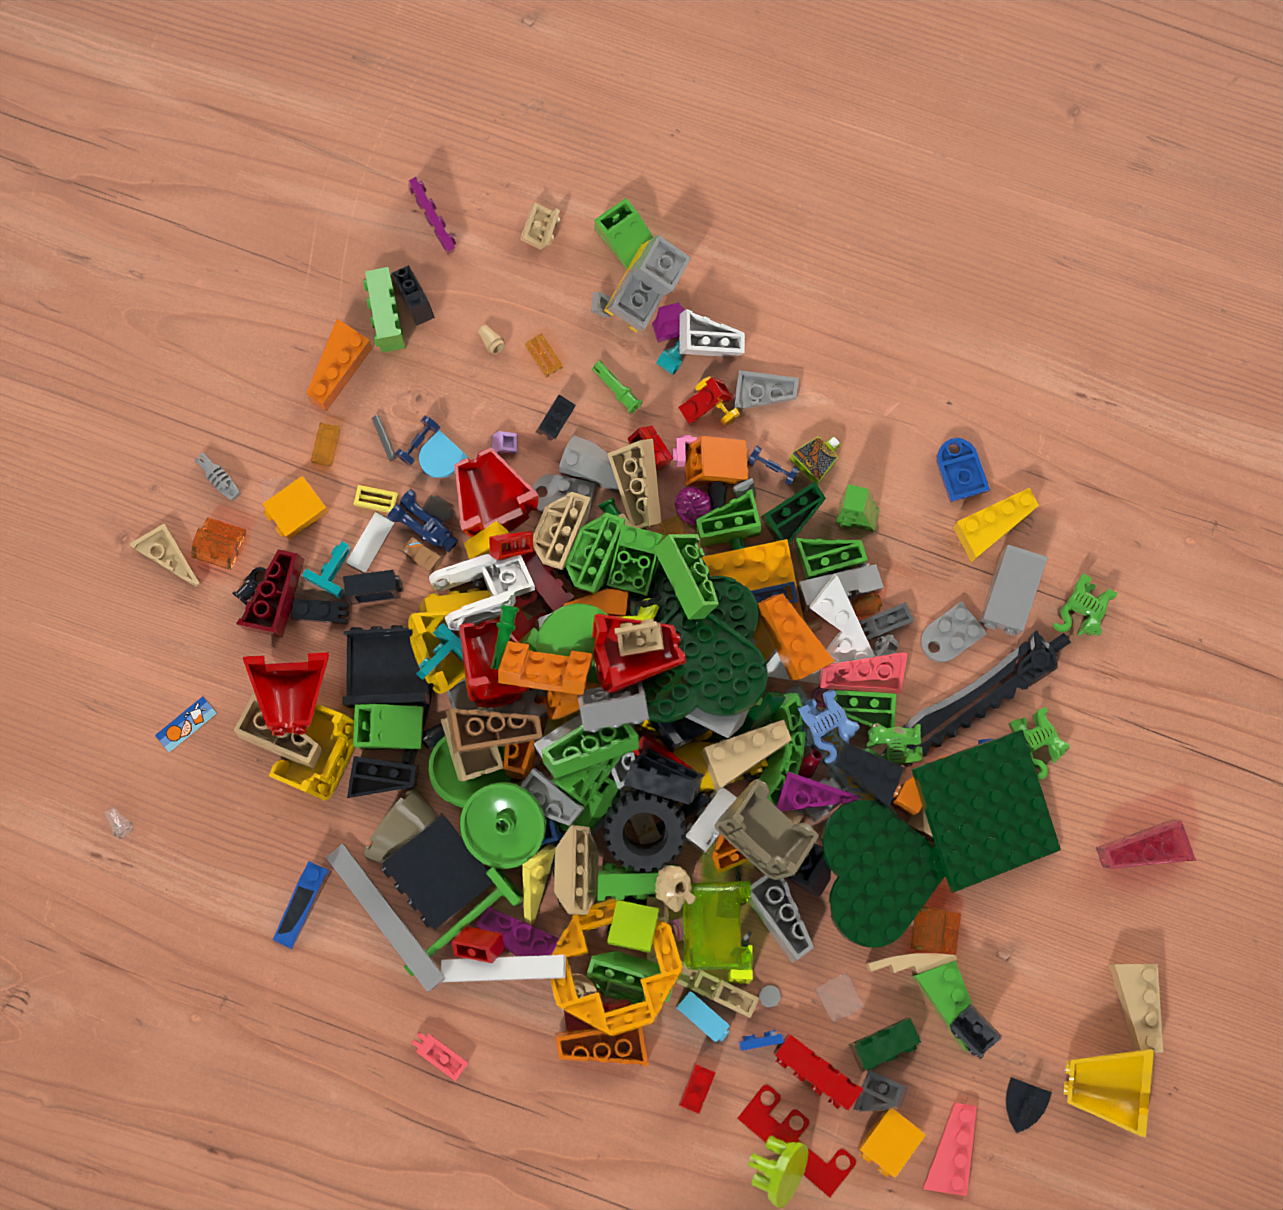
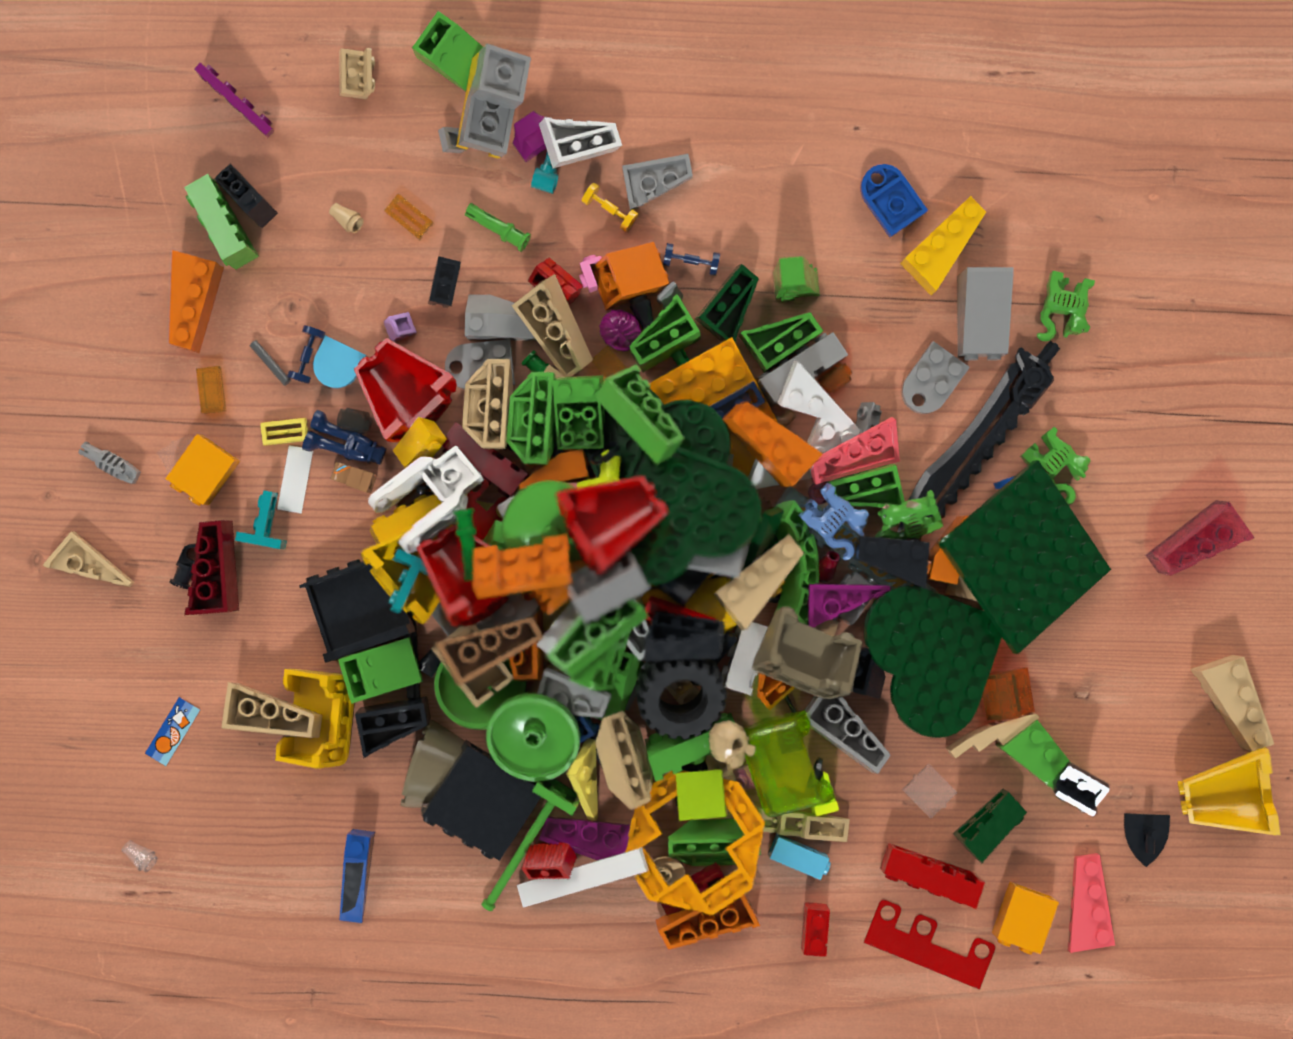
camera: 15 degrees left, 10 degrees up
(217, 543) = (135, 533): clear orange brick -> none
(287, 691) = (260, 670): red cone -> none
(319, 611) = (267, 570): black hinge -> none
(372, 587) = (312, 529): black window -> none
(385, 918) = (445, 863): light grey tile -> none
(440, 1056) = (547, 980): coral hinge -> none
(498, 549) = (429, 444): red slope -> none
(639, 638) = (612, 503): tan bracket -> none
(705, 400) = (596, 211): red bracket -> none
(752, 1042) = (872, 857): blue piece -> none
(769, 996) = (858, 812): light grey piece -> none
(783, 1175) = (929, 990): lime piece -> none
(816, 458) = (734, 236): torso -> none
(879, 1094) = (1002, 875): dark grey wing -> none
(887, 621) = (862, 388): dark grey hinge -> none

